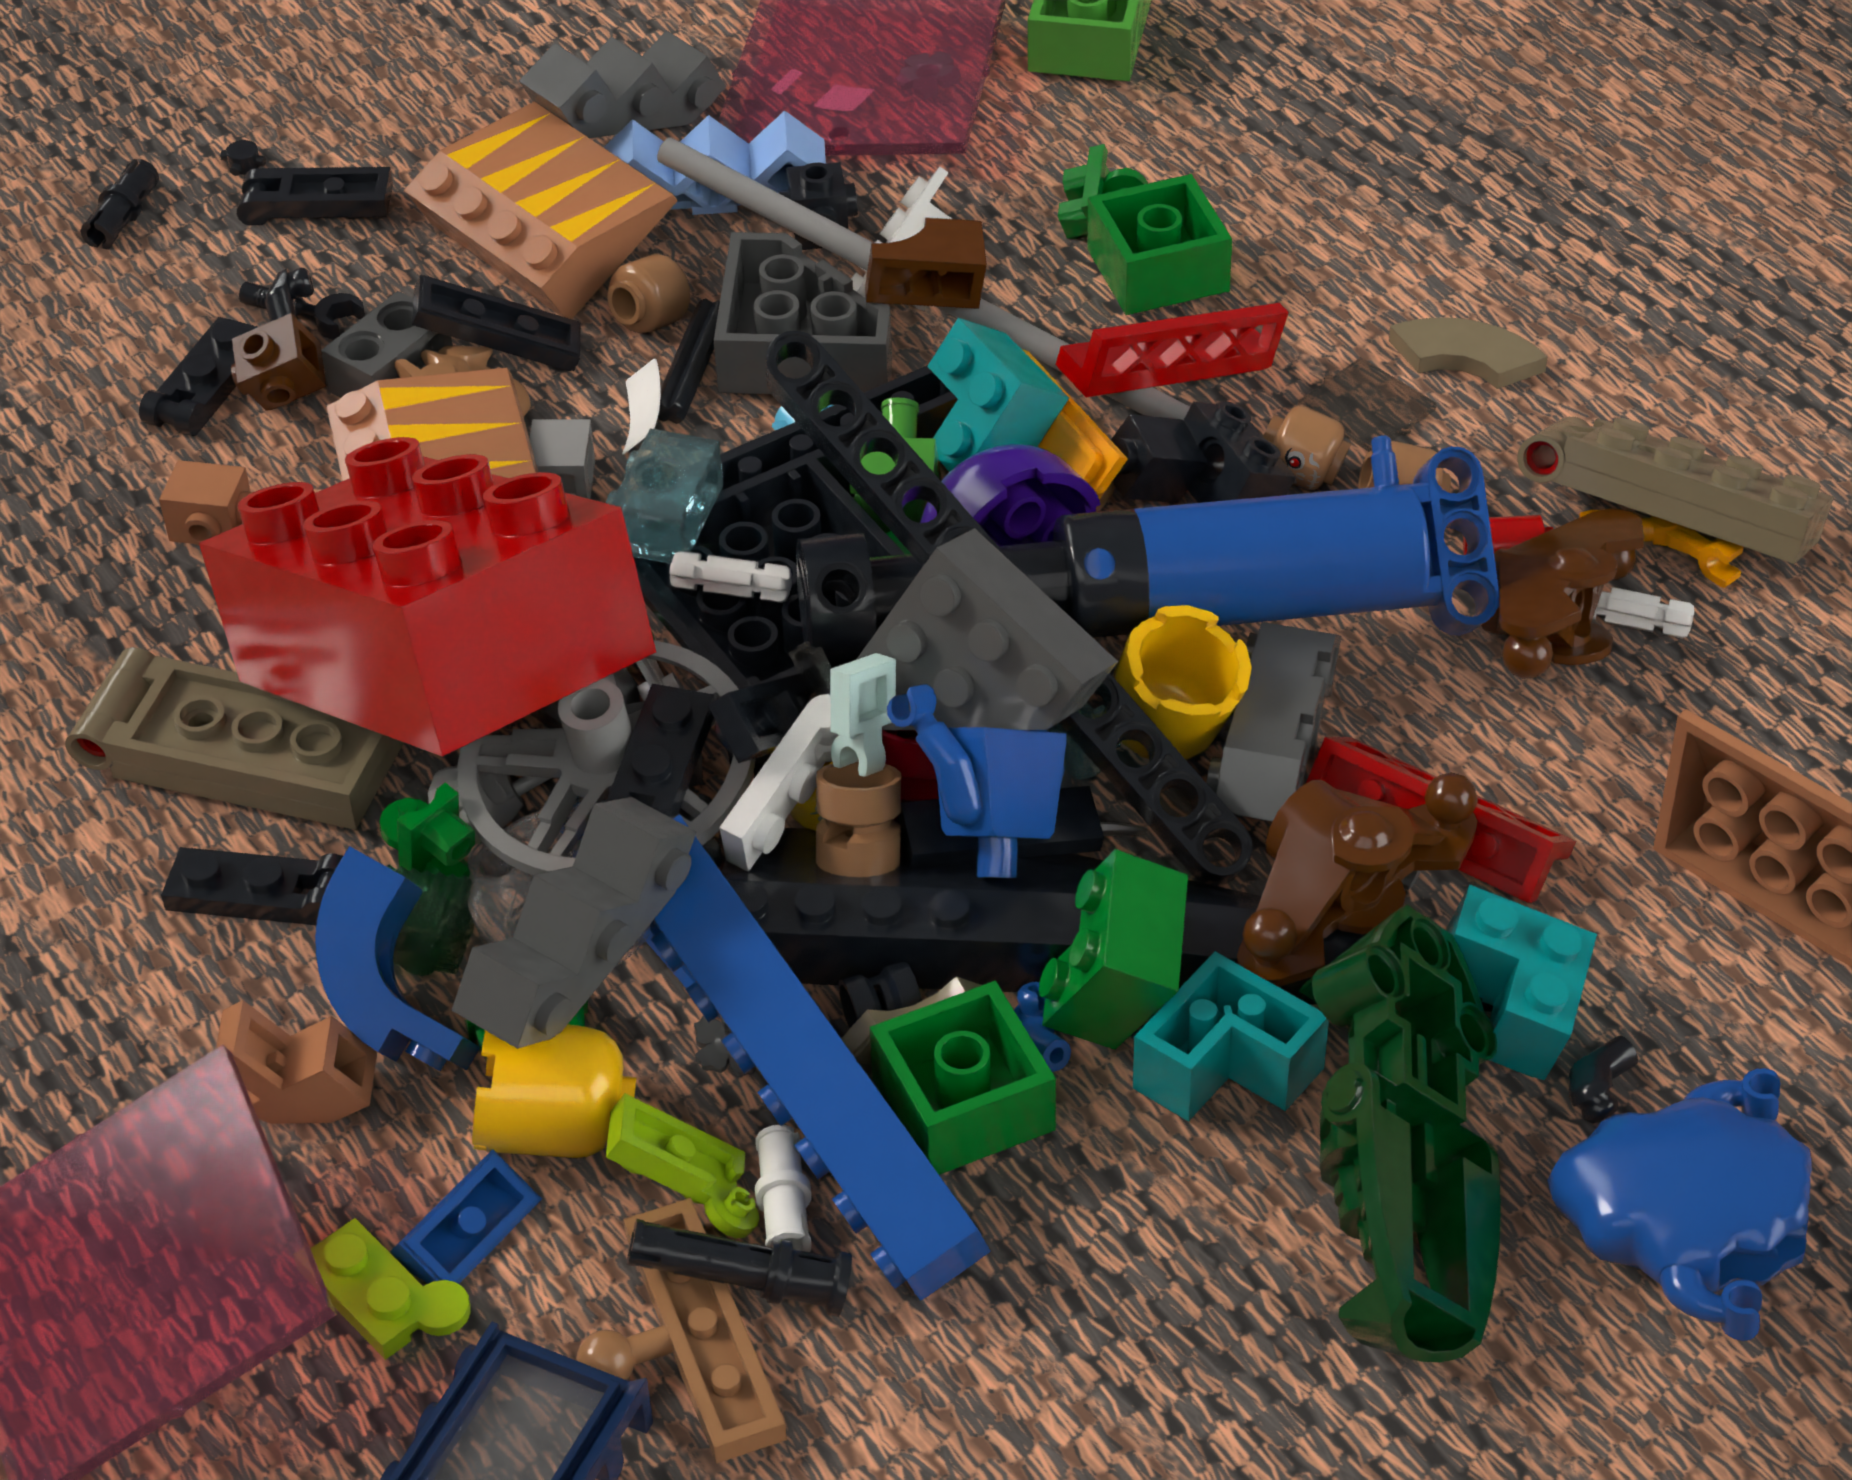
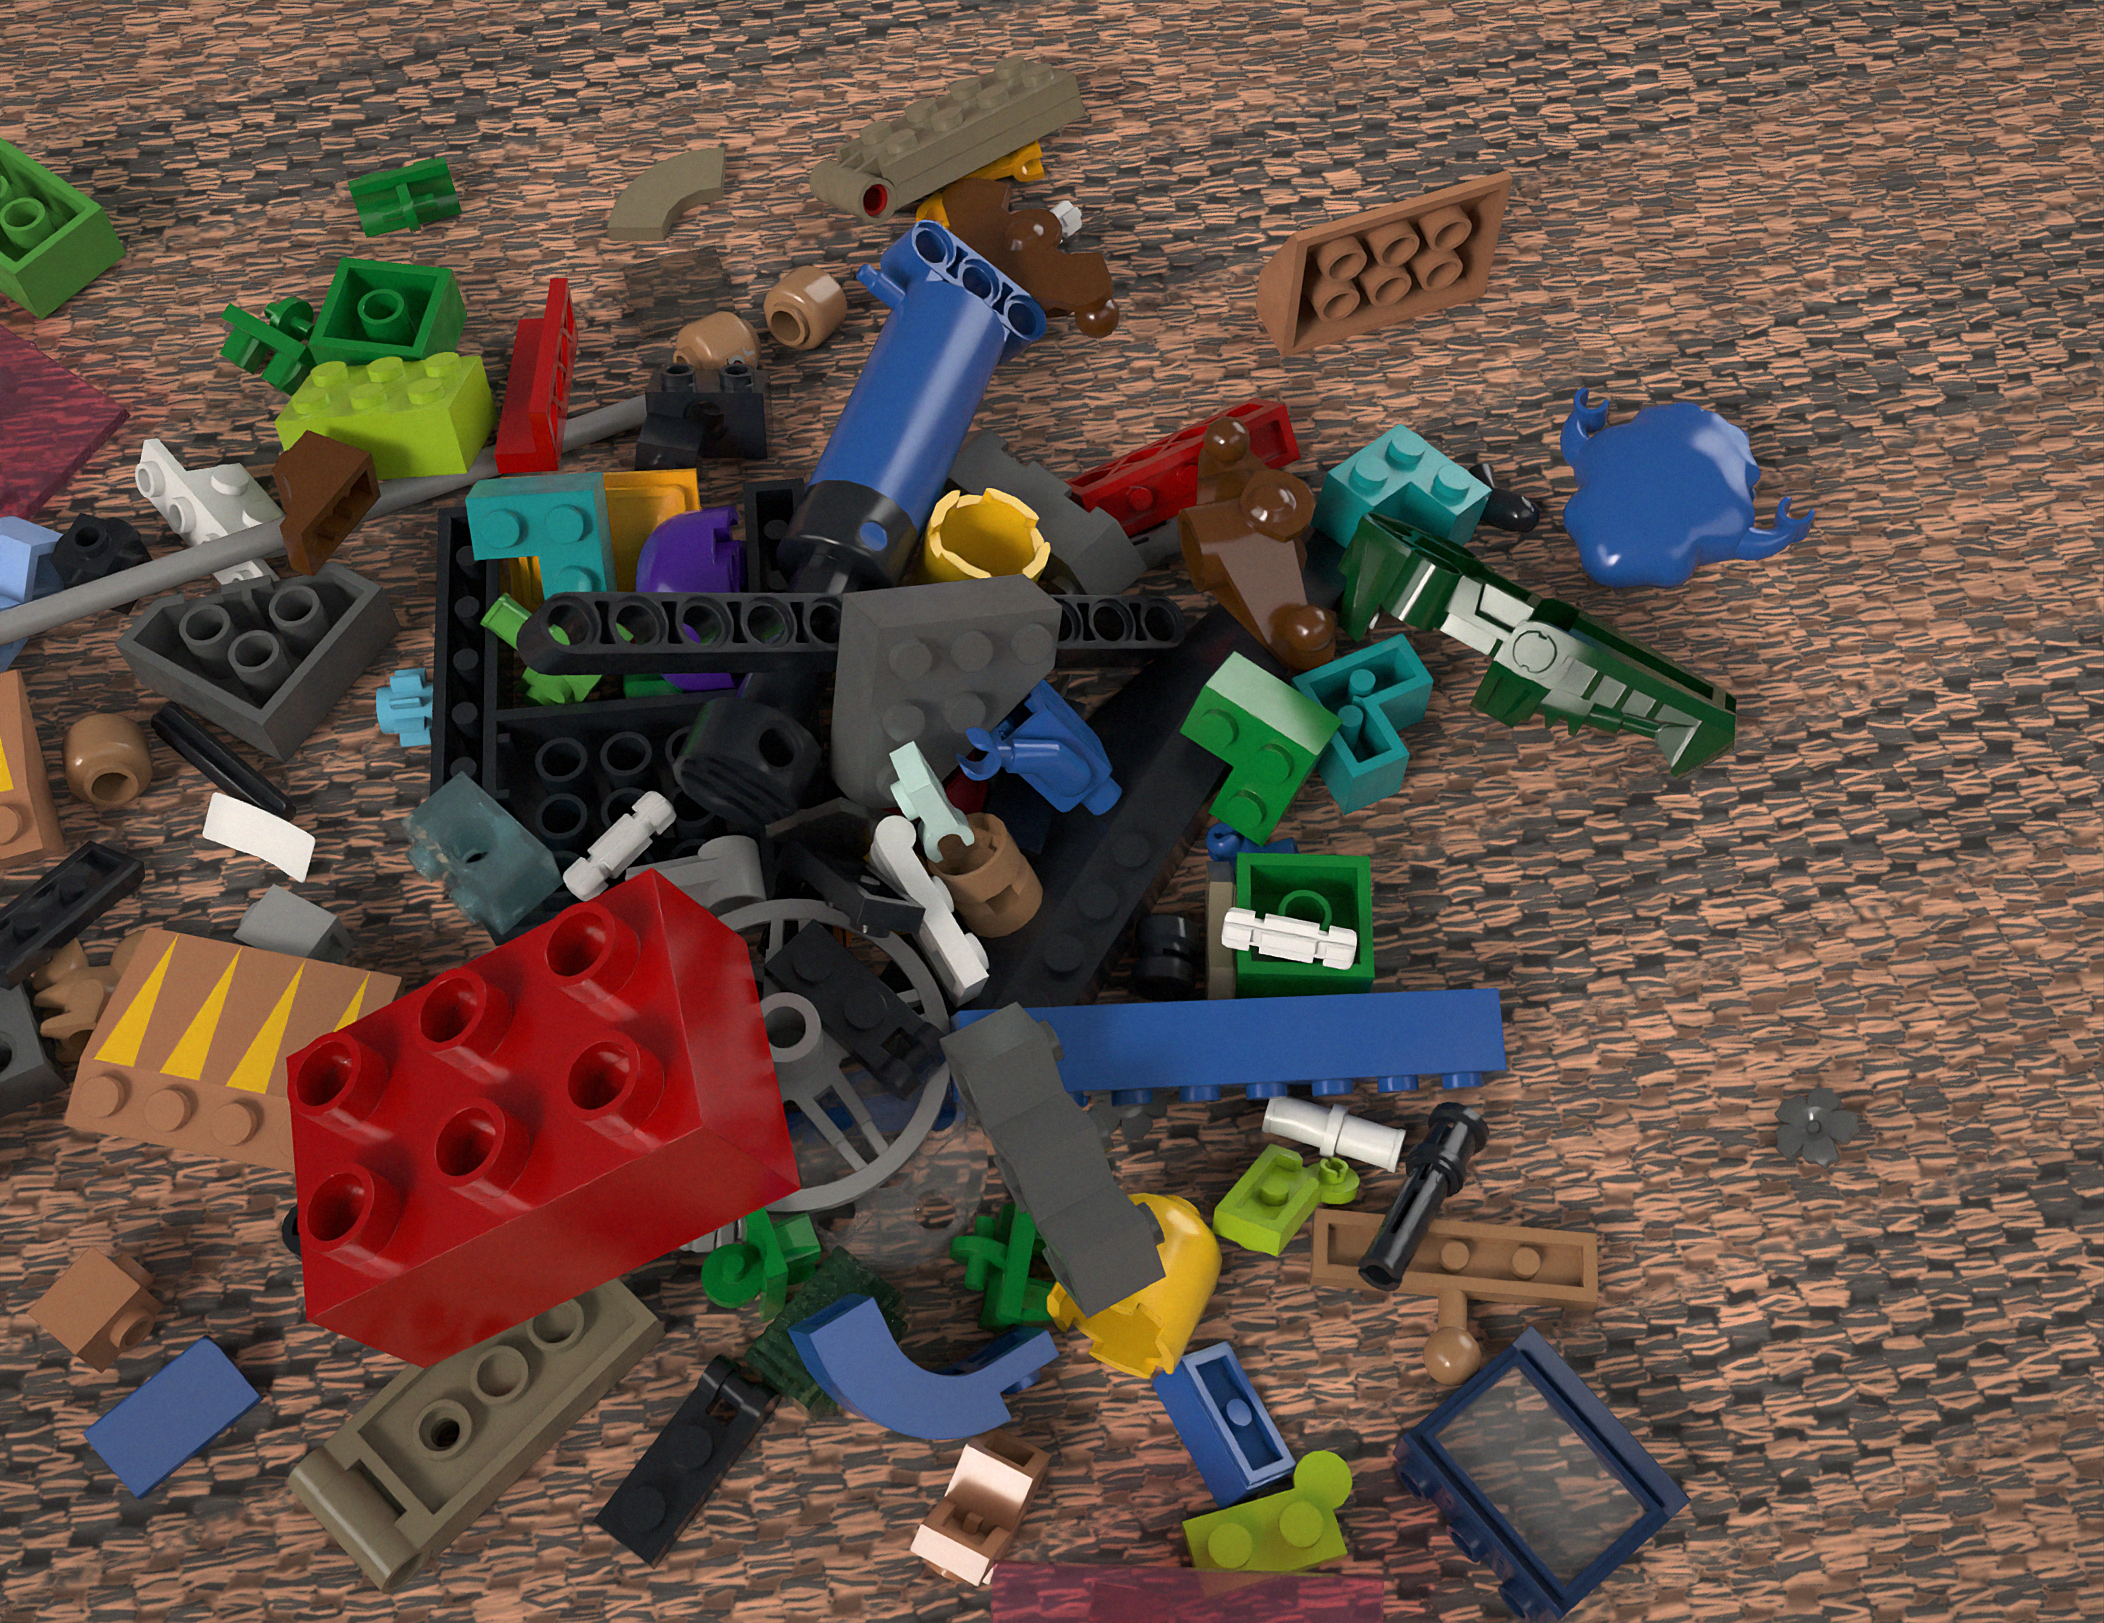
camera: 65 degrees left, 15 degrees up
(150, 585) = (173, 1416): none -> blue slope
(717, 631) = (718, 878): none -> light grey piece
(919, 1040) = (1289, 938): none -> white axle
(1057, 275) = (408, 414): none -> lime brick
(1315, 195) = (405, 197): none -> green hips

